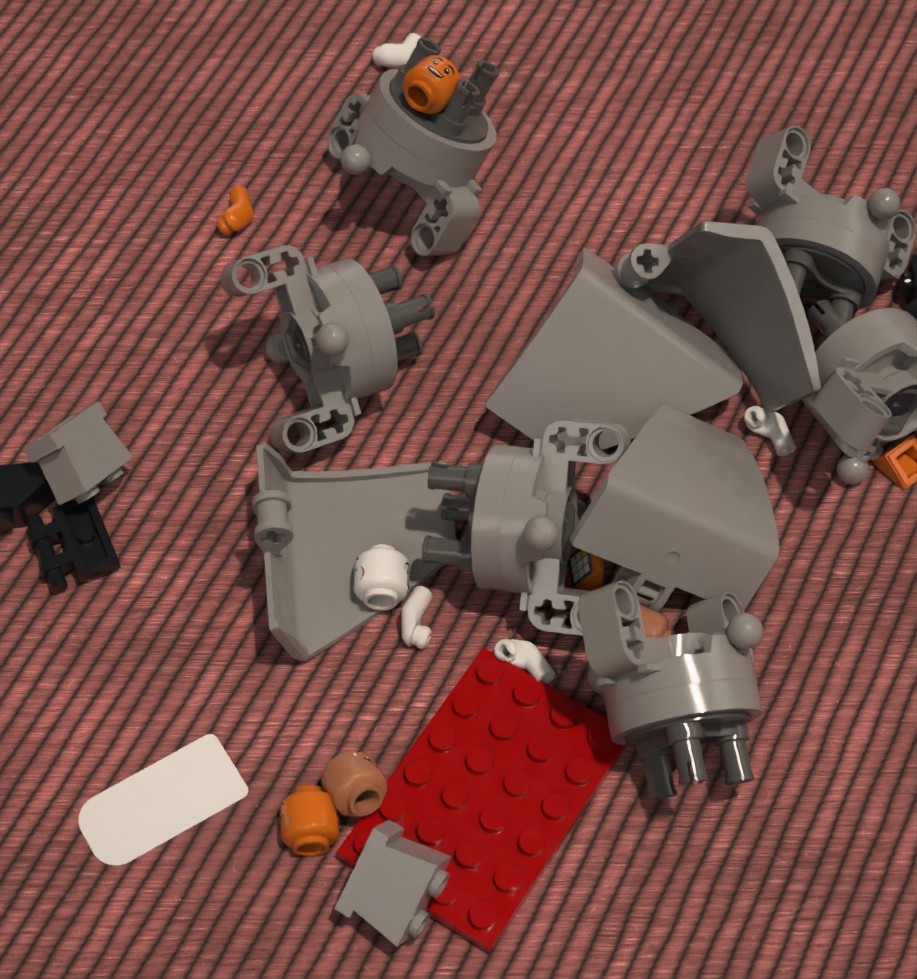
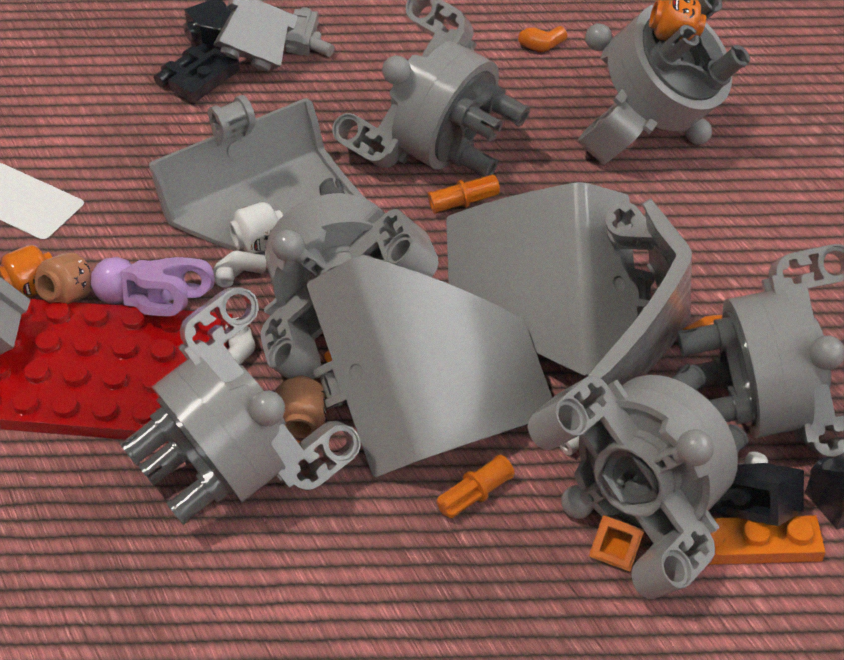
camera: 65 degrees right, 10 degrees down
(57, 406) = (305, 37): none -> light grey piece
(395, 54) = (772, 62): white arm -> none
(415, 701) = (151, 283): none -> lavender piece
(430, 383) = (463, 193): none -> orange axle
(800, 535) = (475, 486): none -> orange axle

